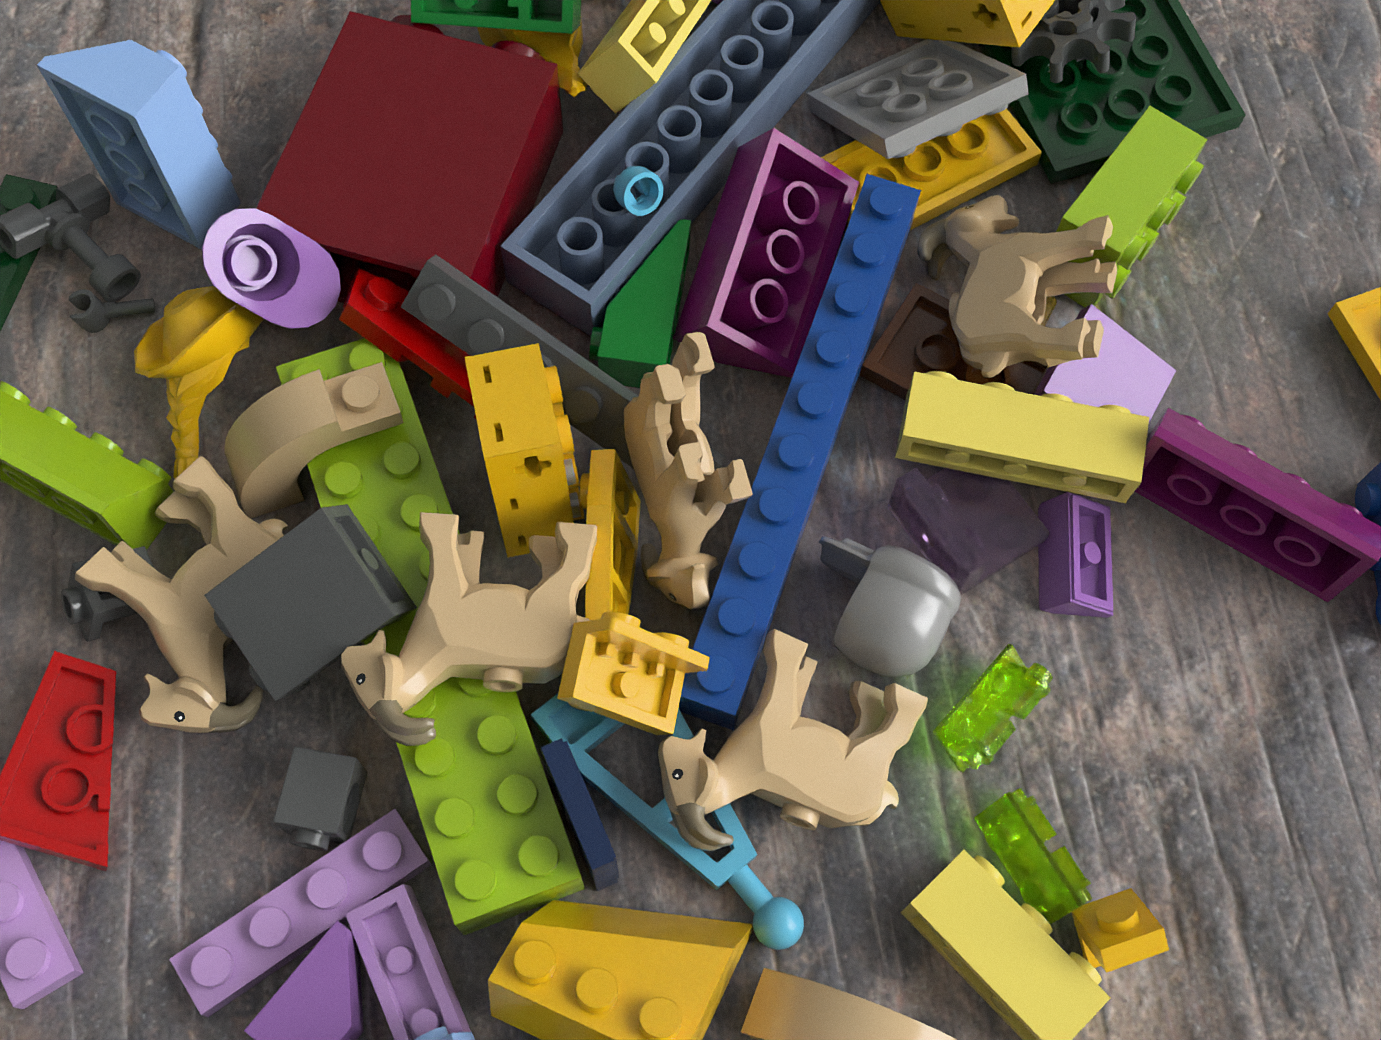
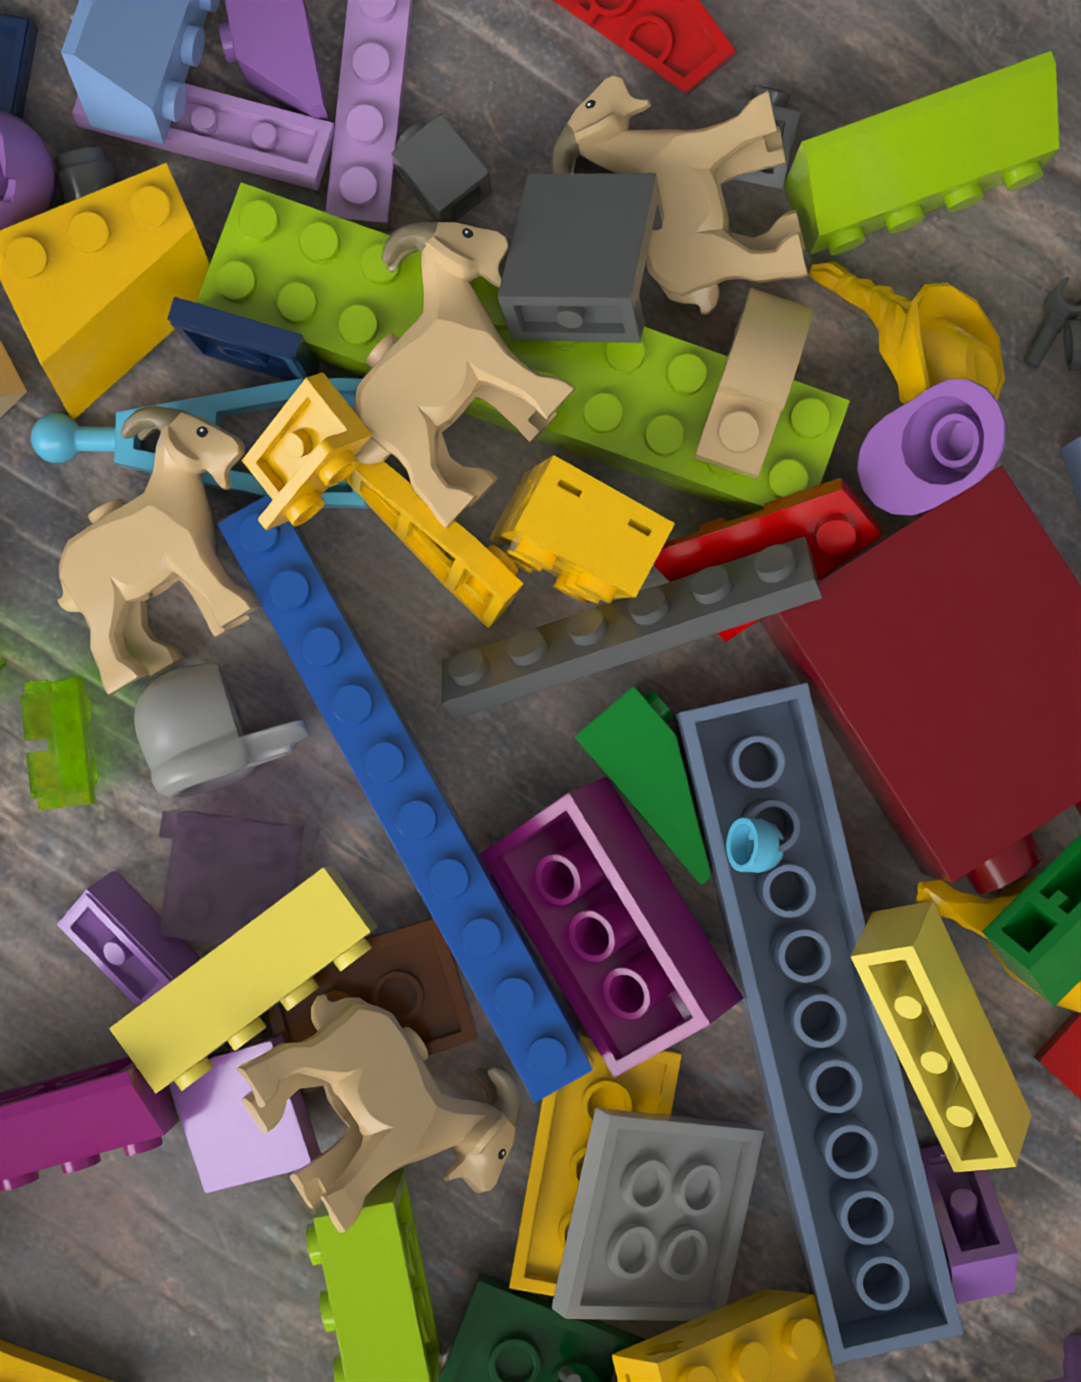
camera: 140 degrees right, 20 degrees up
(679, 474) = (409, 619): tan animal -> none

